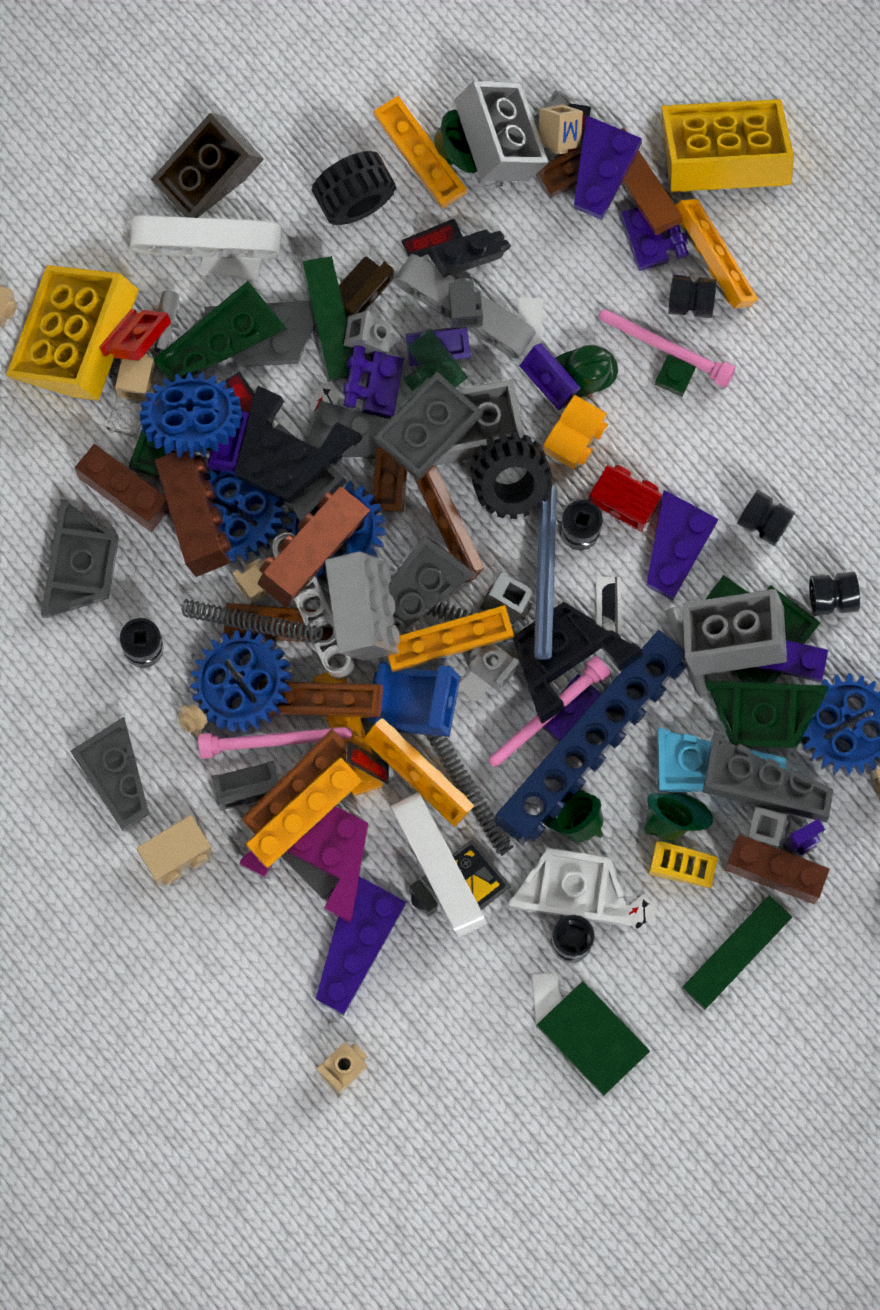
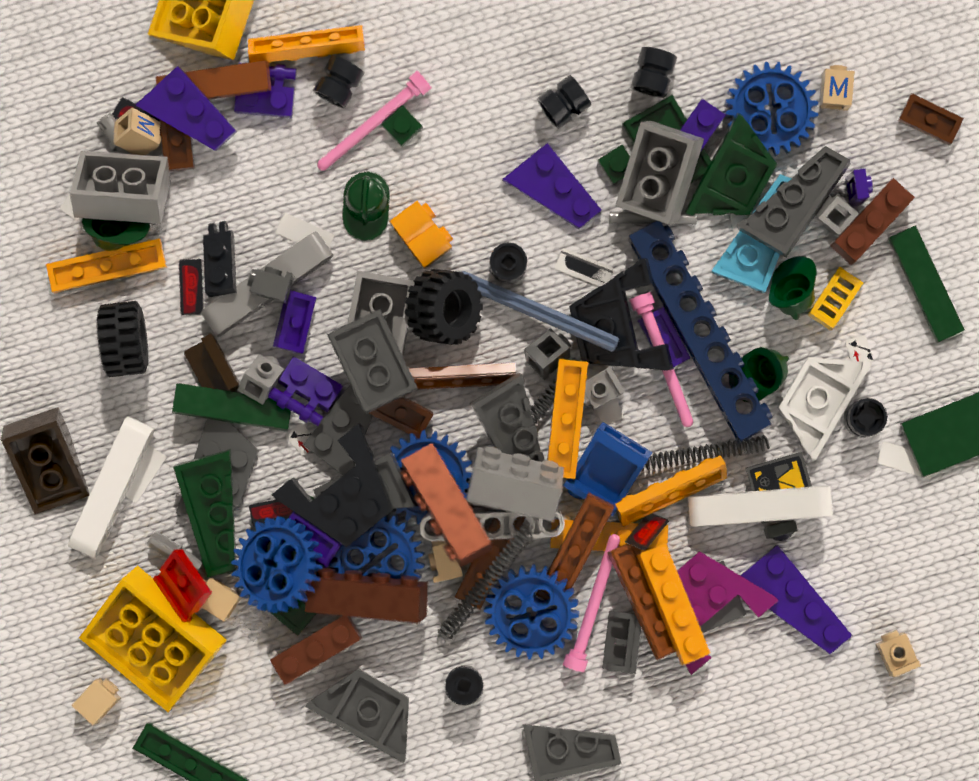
camera: 65 degrees left, 10 degrees up
(175, 851) = (657, 725): tan brick -> none
(192, 719) = (547, 666): tan plate -> none
(432, 358) = (310, 332): clear green plate -> none
(549, 376) = (362, 235): dark purple plate -> none
(625, 497) = (497, 214): red brick -> none

